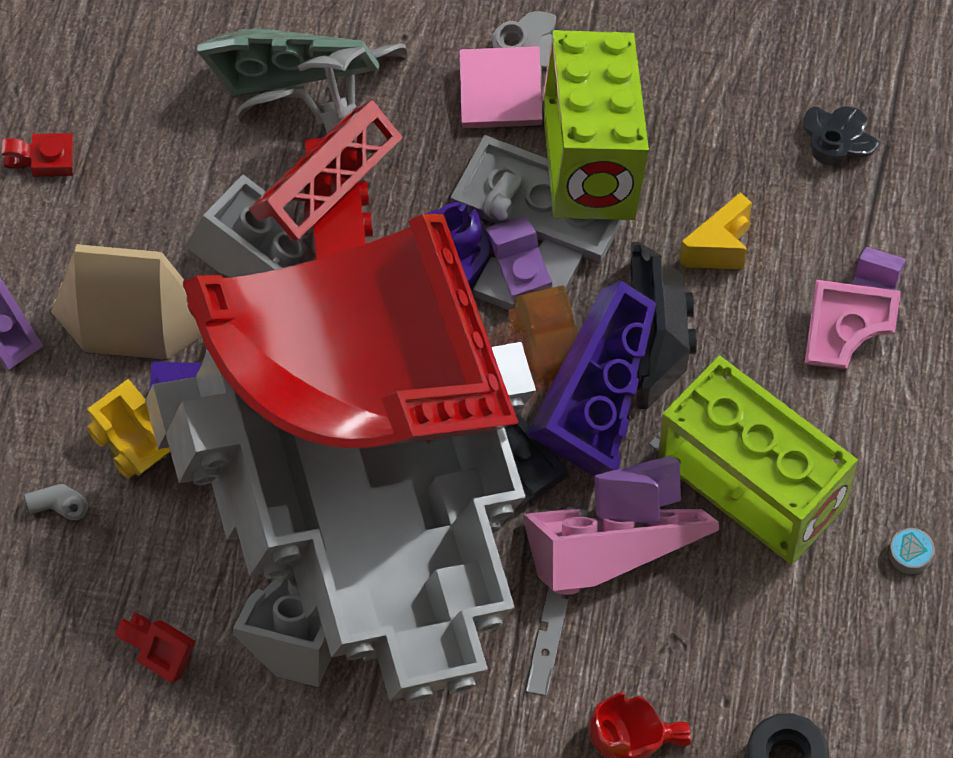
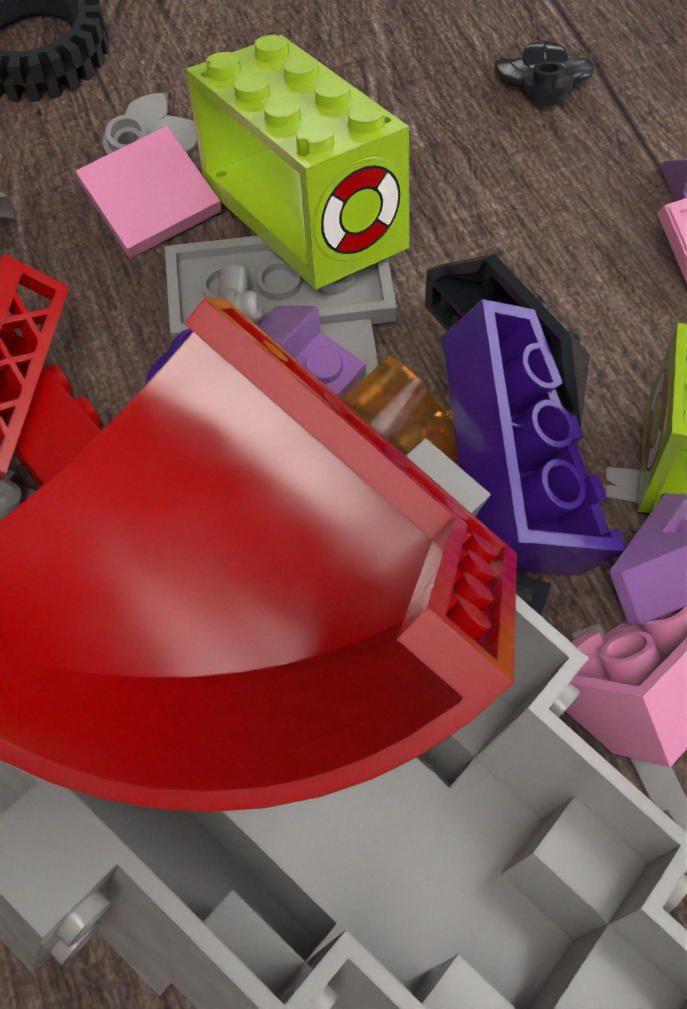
camera: 30 degrees left, 0 degrees up
(716, 240) = (515, 228): yellow slope -> none

